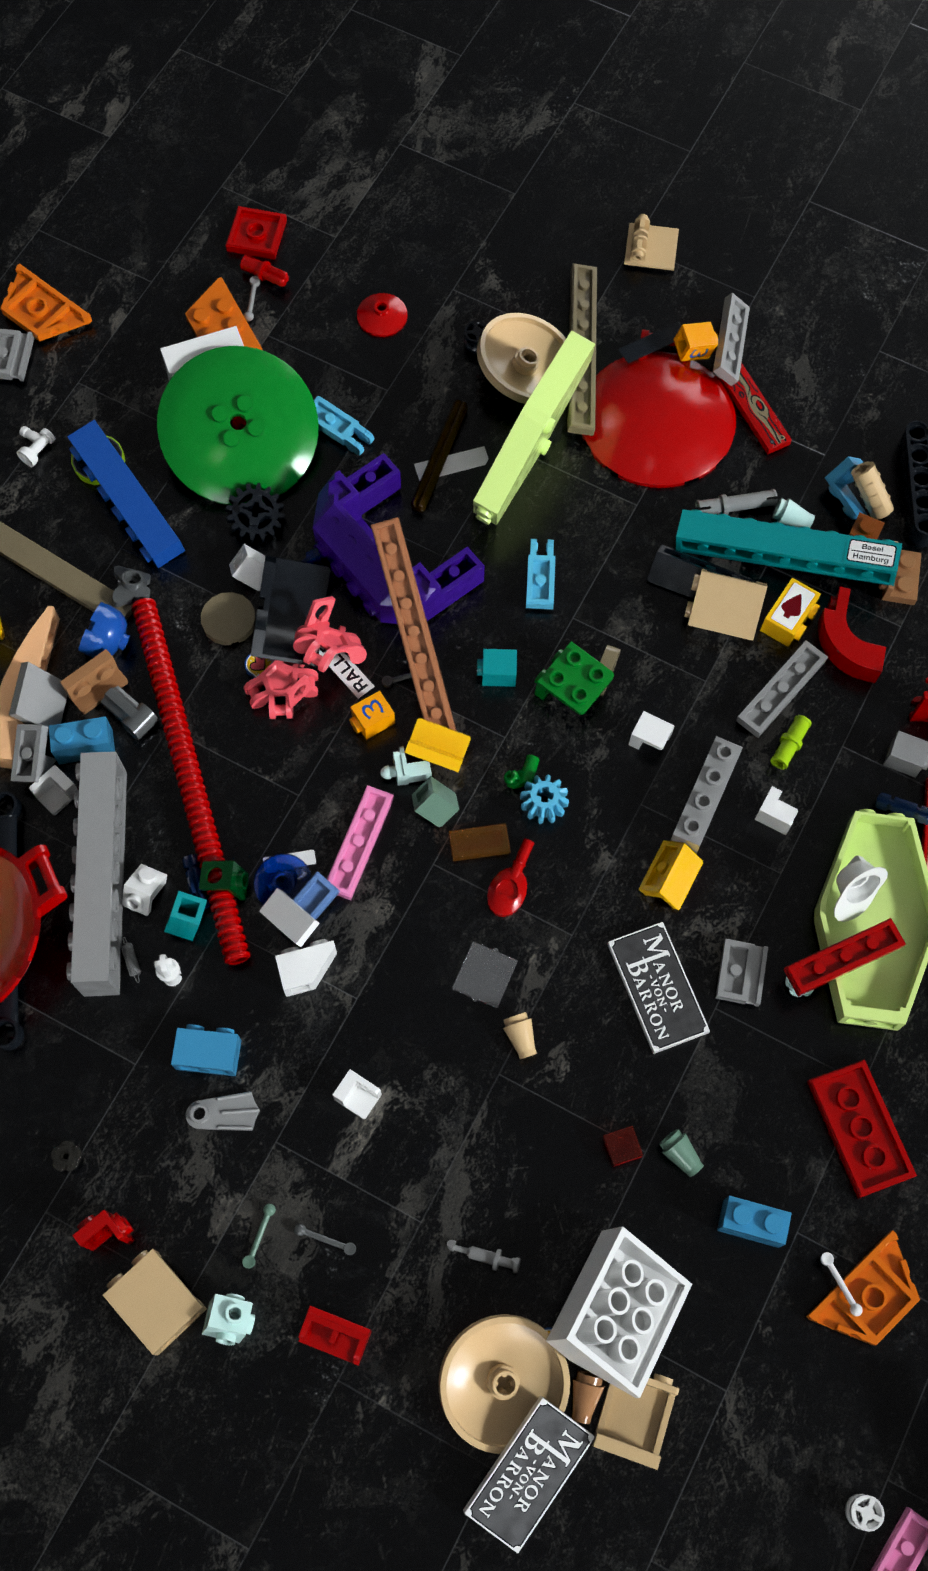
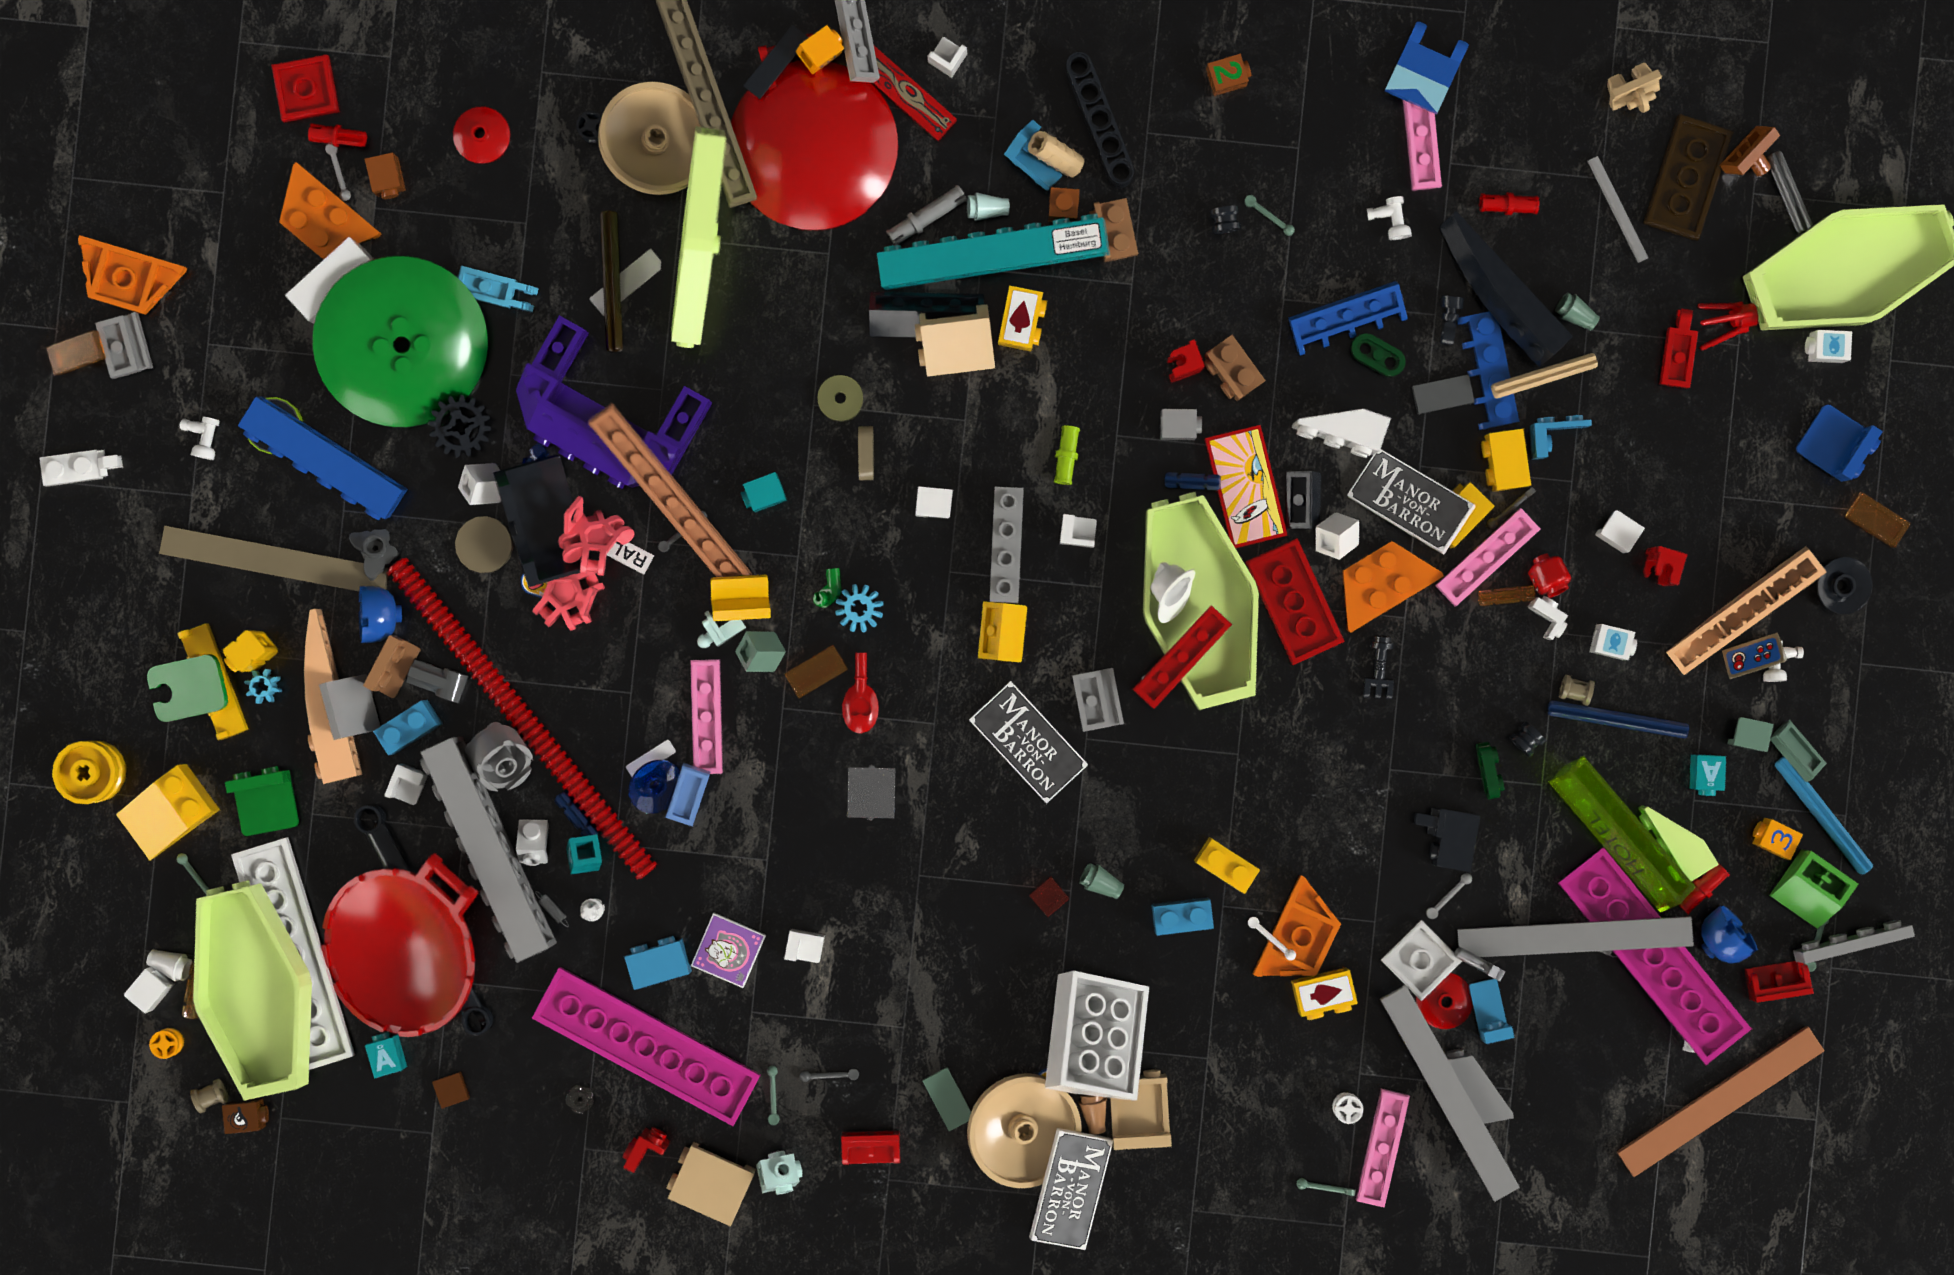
camera: 20 degrees left, 20 degrees up
(29, 753) = (370, 766): light grey slope -> none
(150, 779) = (499, 757): none -> light grey brick
(158, 1132) = (646, 1046): none -> dark pink plate
(225, 1113) = (697, 1005): light grey piece -> none
(233, 878) = (611, 804): dark green bracket -> none
(280, 1069) = (728, 950): none -> tile
(289, 309) = (385, 175): none -> dark orange brick
(289, 917) = (676, 818): white tile -> none
(305, 967) = (711, 855): white slope -> none
(372, 715) = (665, 591): light orange brick -> none
(436, 1316) = (948, 1098): none -> sand green tile
(485, 1256) = (970, 1034): light grey piece -> none
(520, 1033) = (923, 834): tan cone -> none
(540, 577) = (765, 377): medium azure hinge -> none
(574, 679) = (841, 479): green bracket -> none
(597, 630) = (834, 386): none -> olive piece
(781, 689) = (1040, 402): light grey plate -> none
(800, 392) = (947, 56): none -> white panel
(818, 1187) = (1227, 865): none -> yellow brick
(842, 647) = (1087, 339): red arch -> none
(861, 1129) = (1248, 795): red tile -> none
(879, 1368) = (1324, 993): none -> brick

